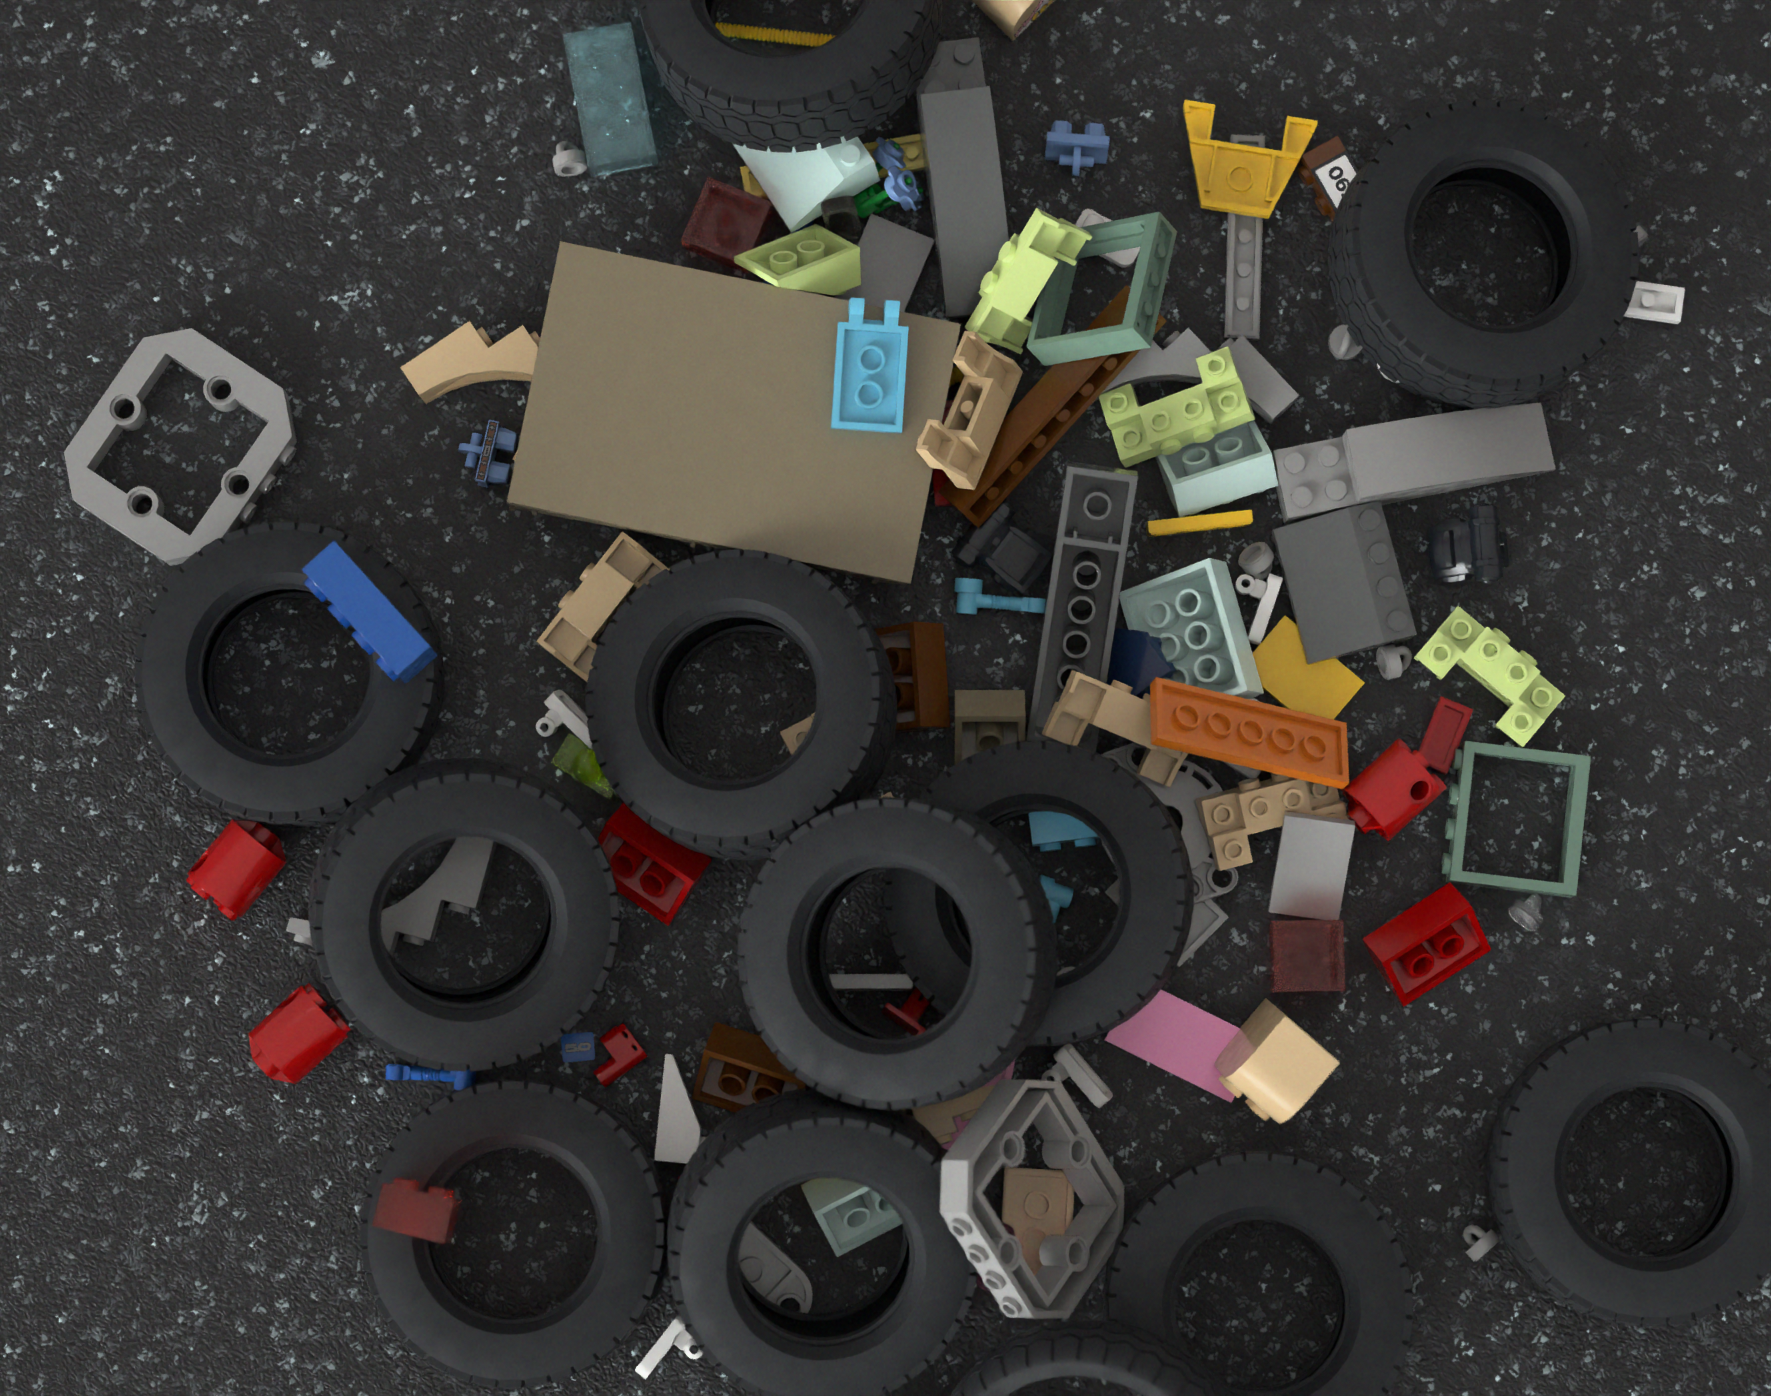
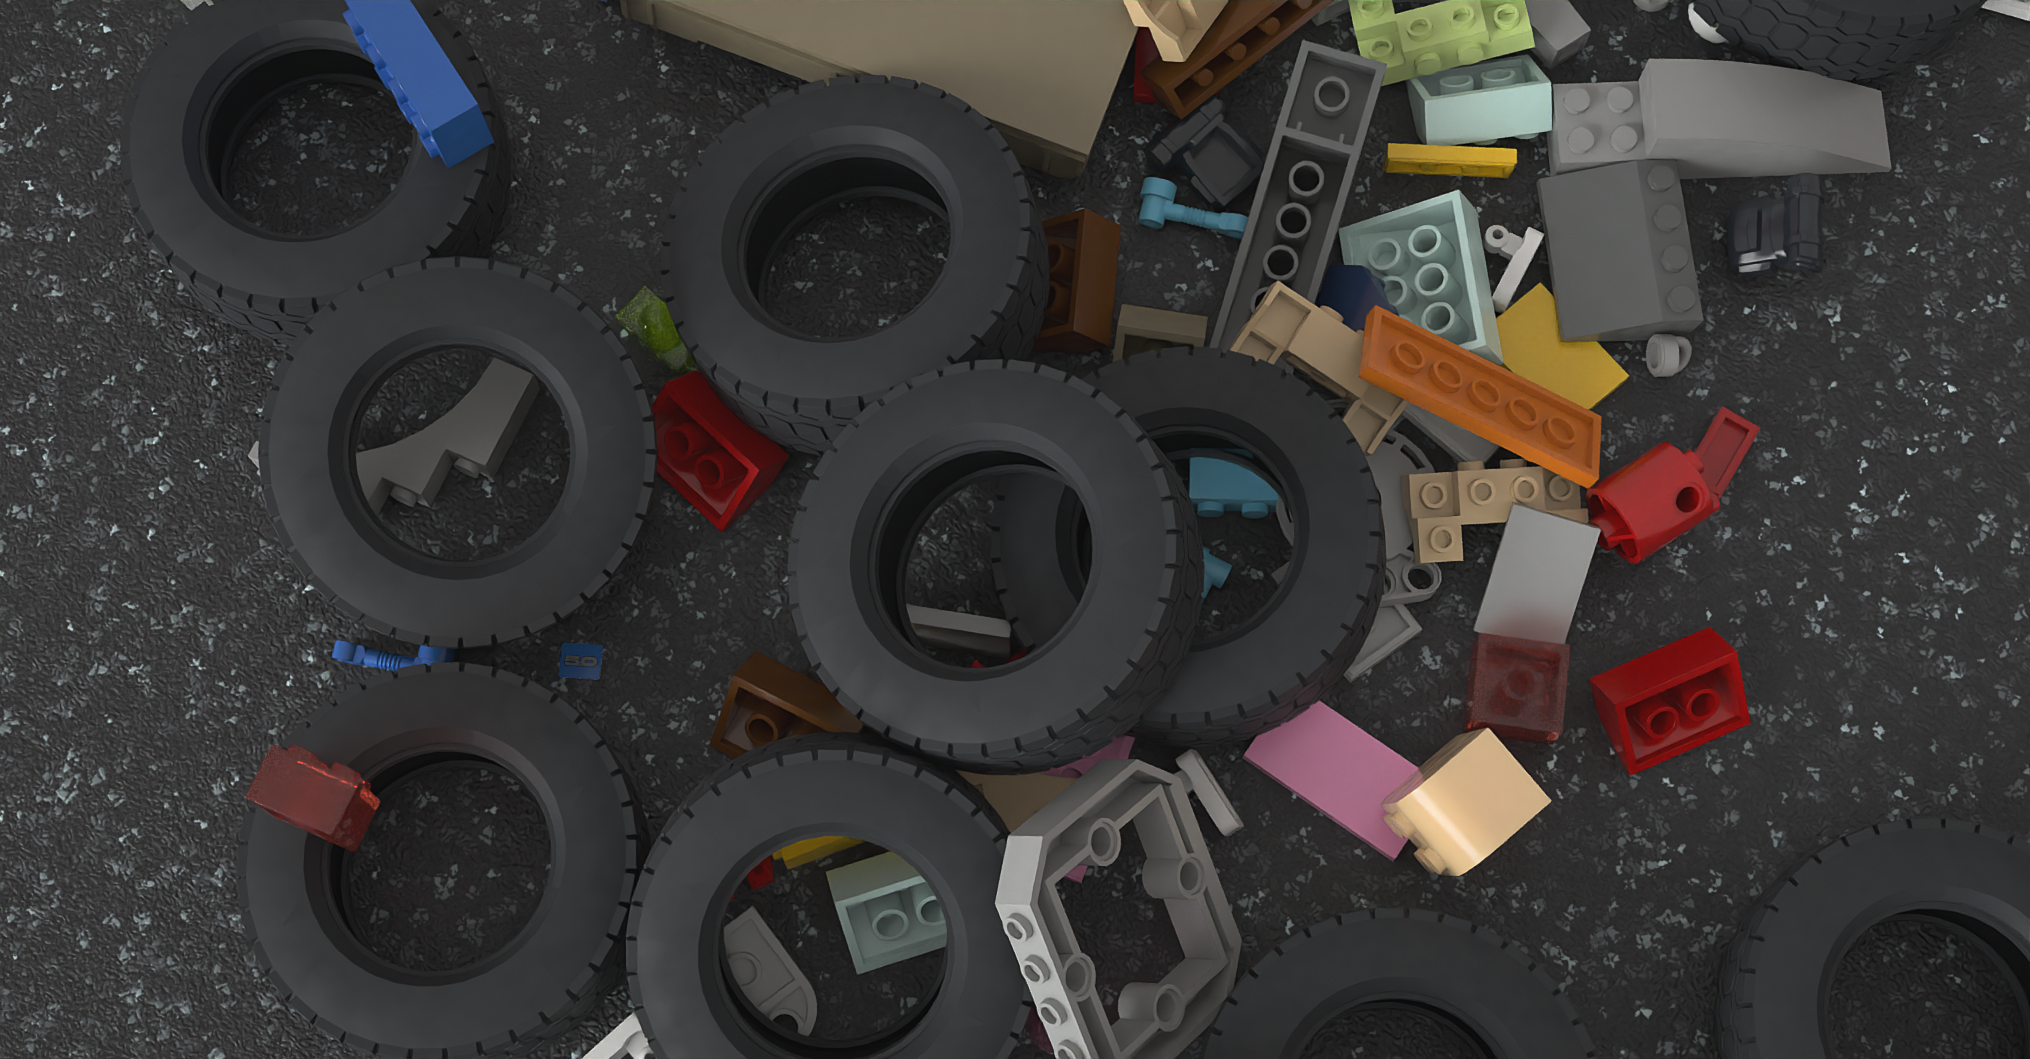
camera: 10 degrees right, 10 degrees down
(237, 866) = (207, 370): red cylinder -> none
(297, 1036) = (230, 584): red cylinder -> none
(564, 711) = (639, 259): white piece -> none
(596, 601) = (668, 159): tan bracket -> none
(622, 1052) = (634, 676): red piece -> none
(677, 1124) = (684, 758): white slope -> none
(1036, 1206) = (1126, 946): tan tile -> none
(1257, 560) = (1514, 211): light grey tile -> none
(1497, 667) = (1796, 382): yellowish green bracket -> none
(1527, 913) = (1802, 682): clear tile -> none
(1573, 826) = (1874, 581): sand green window -> none

